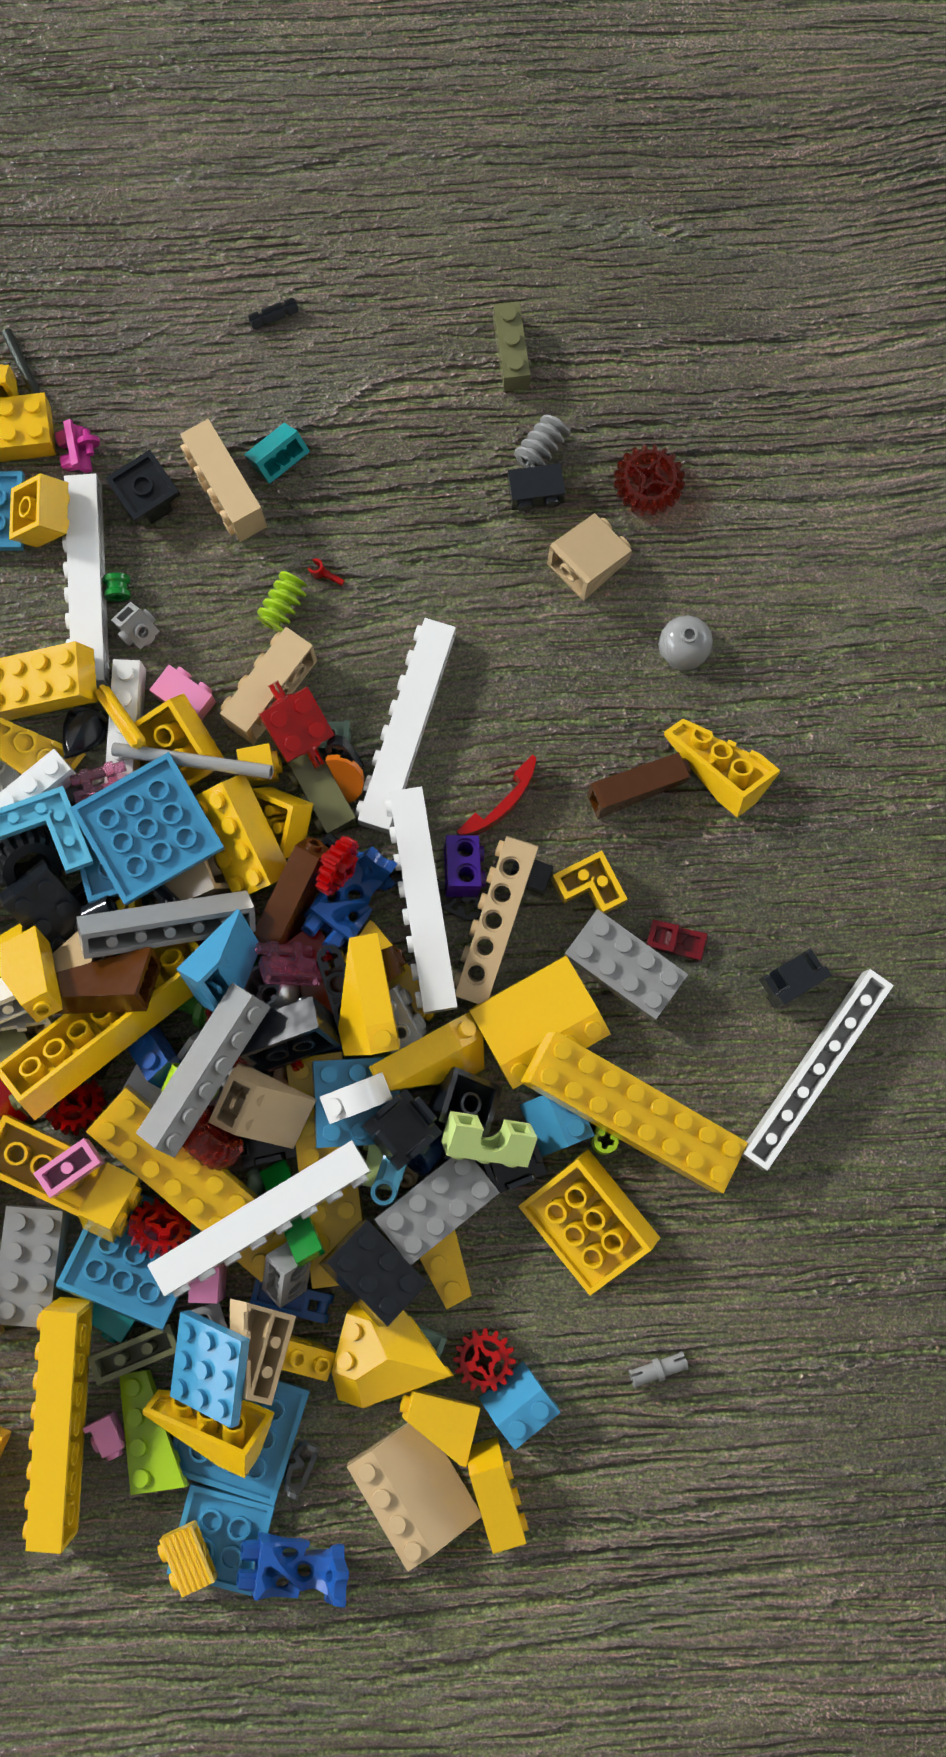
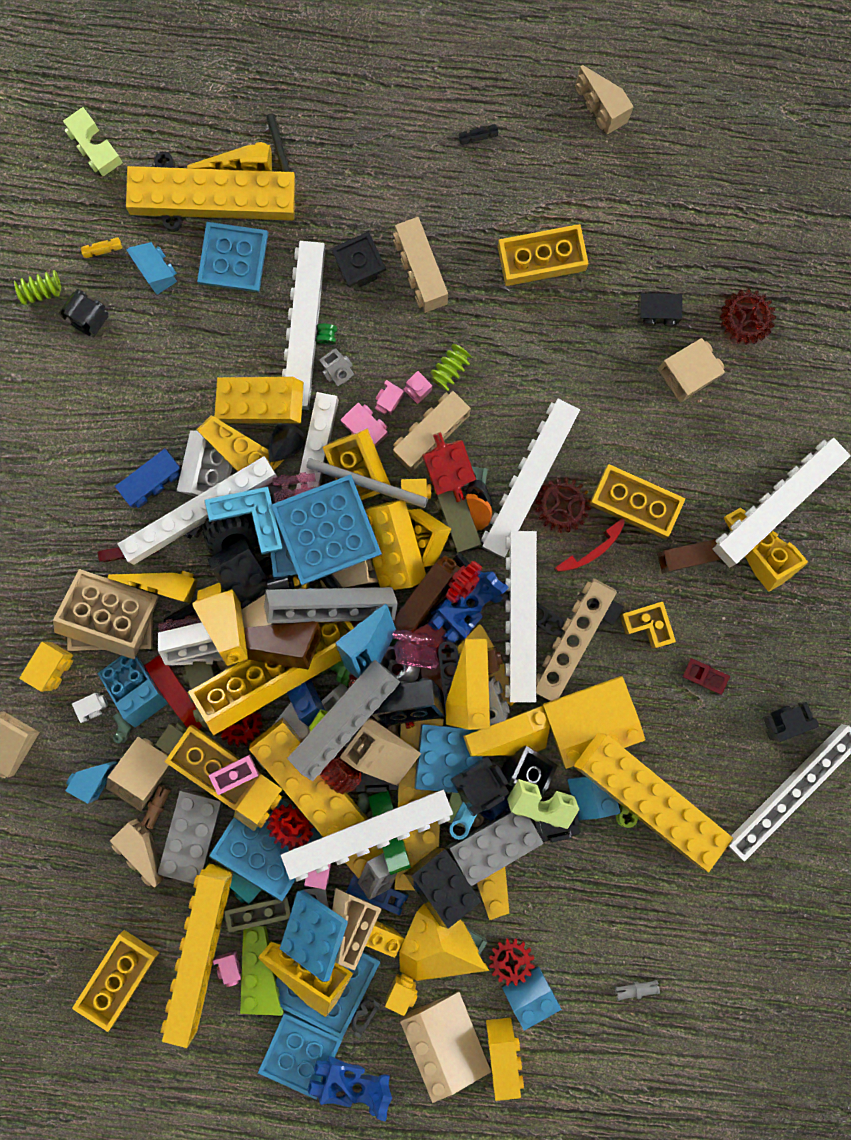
camera: 10 degrees right, 5 degrees up
(39, 510) = (277, 266): yellow brick -> none
(80, 447) = (314, 215): dark pink hips -> none
(120, 717) = (317, 439): yellow axle -> none
(187, 1559) = (275, 1066): yellow brick -> none
(209, 654) = (388, 398): none -> bright pink brick
(244, 634) = (418, 387): none -> bright pink brick
(277, 452) = (464, 247): teal brick -> none
(322, 572) = (484, 347): red hand -> none
(343, 1429) = (401, 994): none -> yellow brick
(356, 1098) = (451, 758): white brick -> none
(376, 444) = (542, 255): none -> yellow brick
(422, 244) = (604, 100): none -> tan slope
(443, 1421) = (475, 1000): yellow slope -> none
(458, 865) = (551, 593): dark purple brick -> none
(463, 745) = (566, 513): none -> clear red gear
(511, 346) = (659, 192): olive brick -> none
(540, 441) = (669, 272): light grey piece -> none
(547, 730) = (637, 501): none -> yellow brick
(589, 1222) = (605, 875): yellow slope -> none
(625, 965) = (664, 689): light grey brick -> none
(685, 642) = (753, 449): light grey cylinder -> none
(731, 700) = (781, 502): none -> white brick

